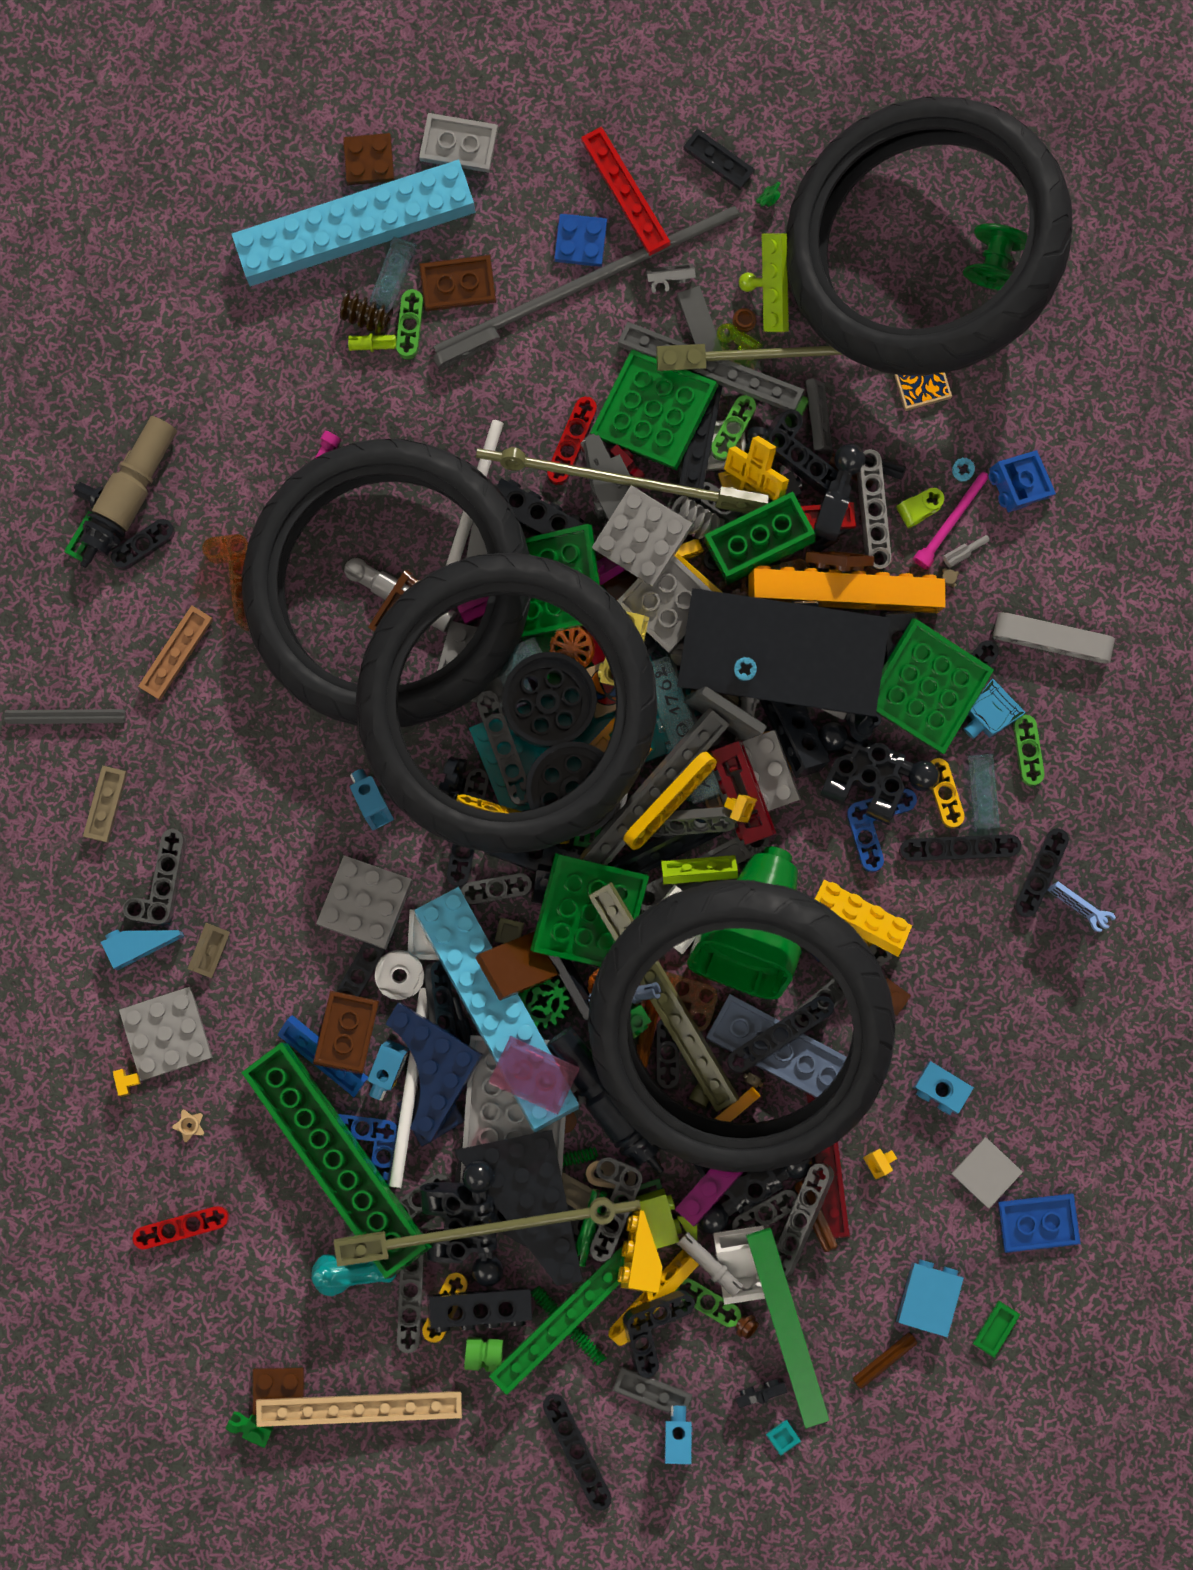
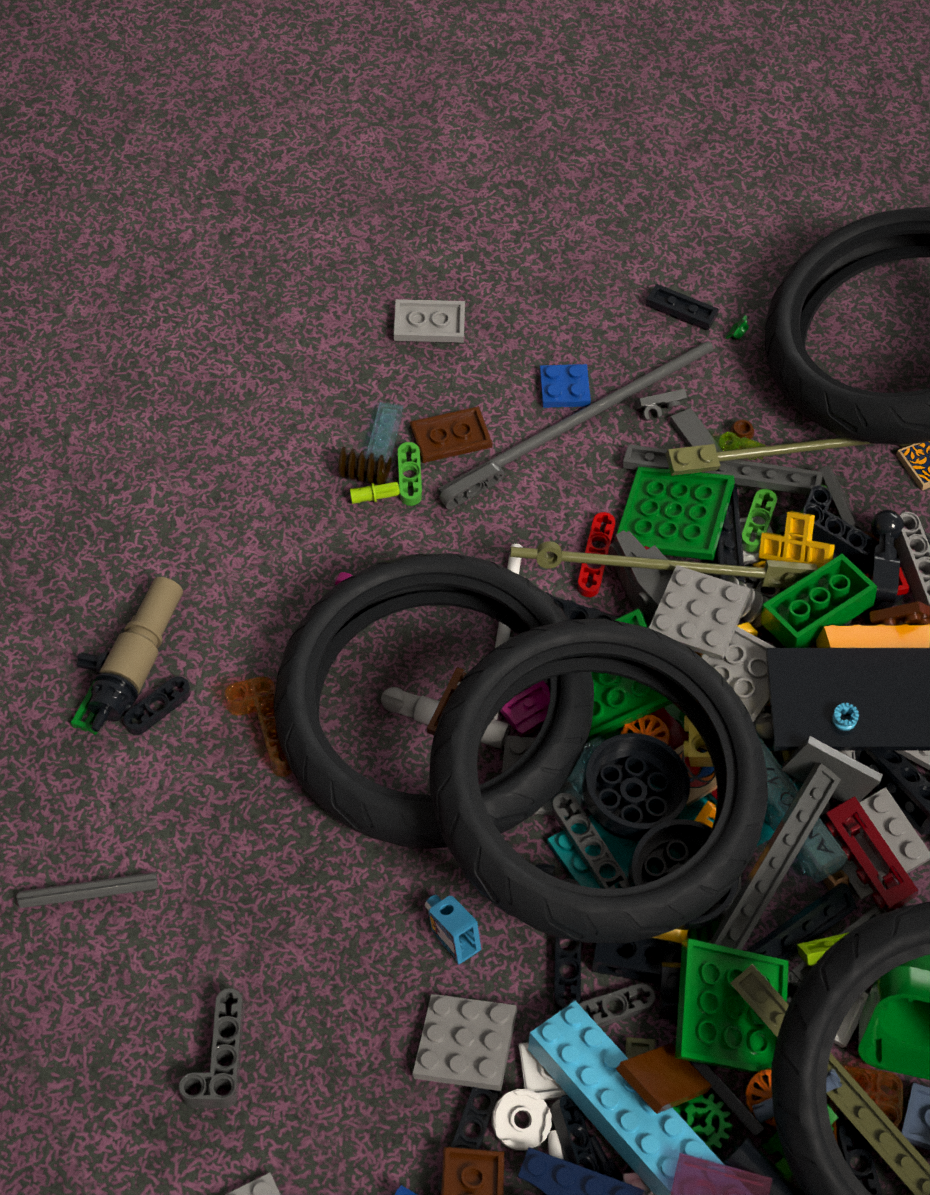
camera: 15 degrees left, 25 degrees down
(105, 804) = (143, 977): dark tan plate -> none
(129, 946) = (197, 1131): dark azure slope -> none
(175, 652) = (206, 807): medium nougat plate -> none
(208, 950) = (287, 1125): dark tan plate -> none
(354, 222) = (337, 394): medium azure brick -> none
(368, 159) = (343, 344): reddish brown plate -> none
(625, 191) = (601, 339): red plate -> none
(669, 800) = (794, 870): yellow beam -> none
(717, 820) = (821, 898): dark grey beam -> none
(741, 807) = (876, 862): yellow tile -> none
(773, 281) = (765, 391): lime plate -> none

